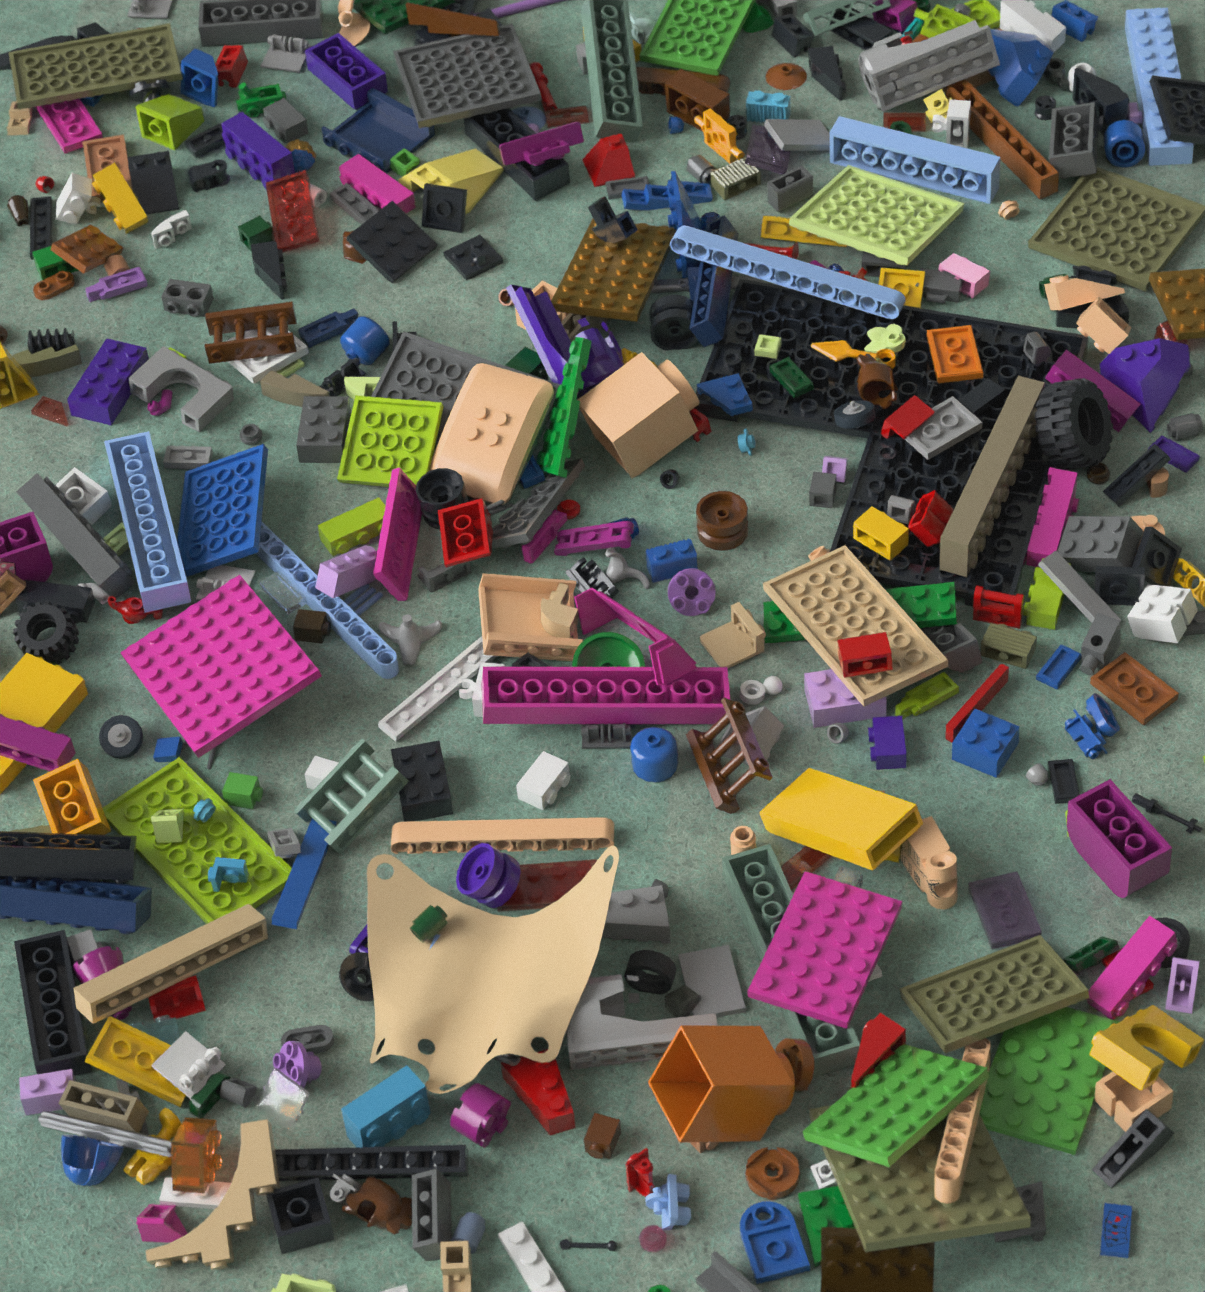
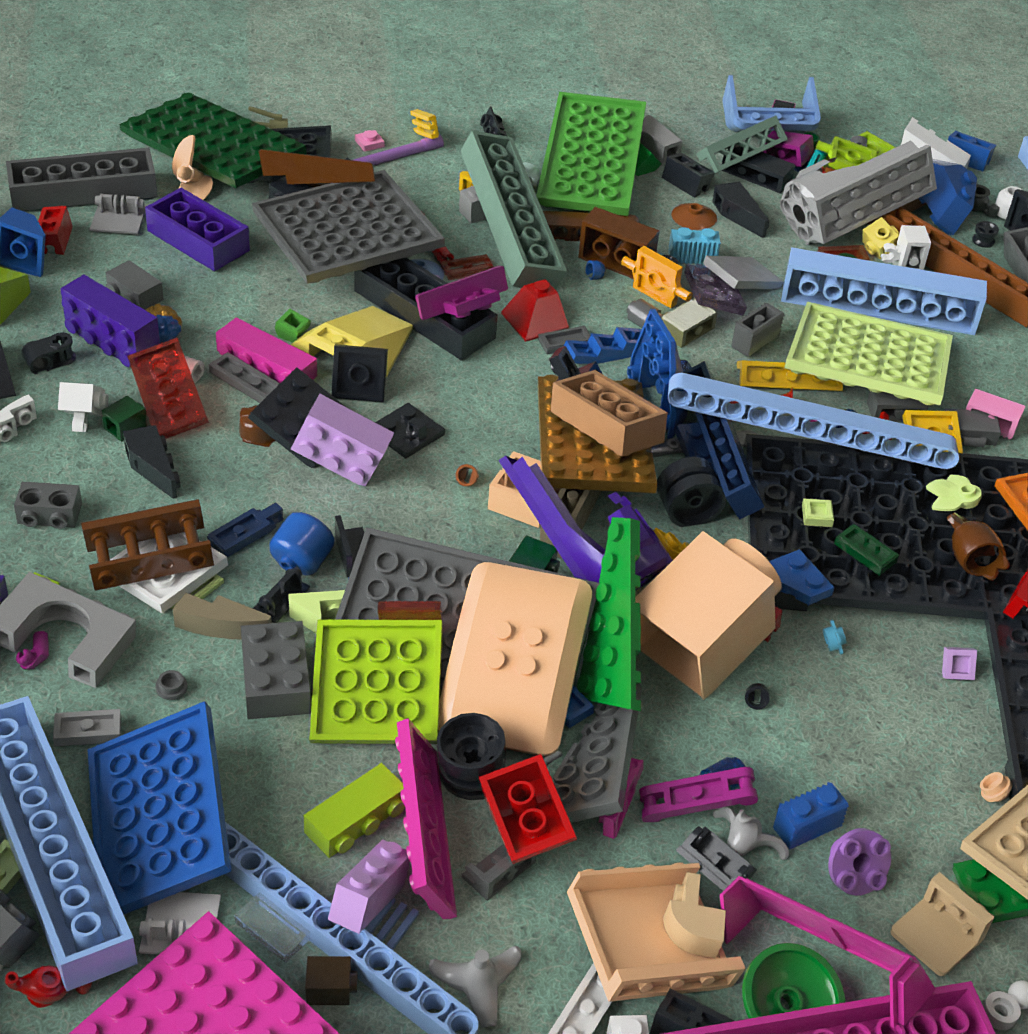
camera: 20 degrees left, 5 degrees down
(205, 141) = (39, 313): black hinge -> none
(224, 218) = (81, 401): none -> white brick
(255, 99) = (95, 262): green brick -> none
(378, 131) = (251, 290): dark blue panel -> none
(411, 263) = (342, 440): none -> lavender brick
(420, 394) = (410, 610): none -> clear red tile
(569, 507) = (644, 751): red plate -> none
(619, 254) = (608, 412): none -> medium nougat brick
(722, 520) = (855, 750): reddish brown wheel -> none
(822, 490) = (959, 693): dark grey brick -> none
(841, 349) = (906, 511): light orange piece -> none
(854, 414) = (968, 590): black wheel -> none
(1009, 209) = (1003, 339): light nougat plate -> none

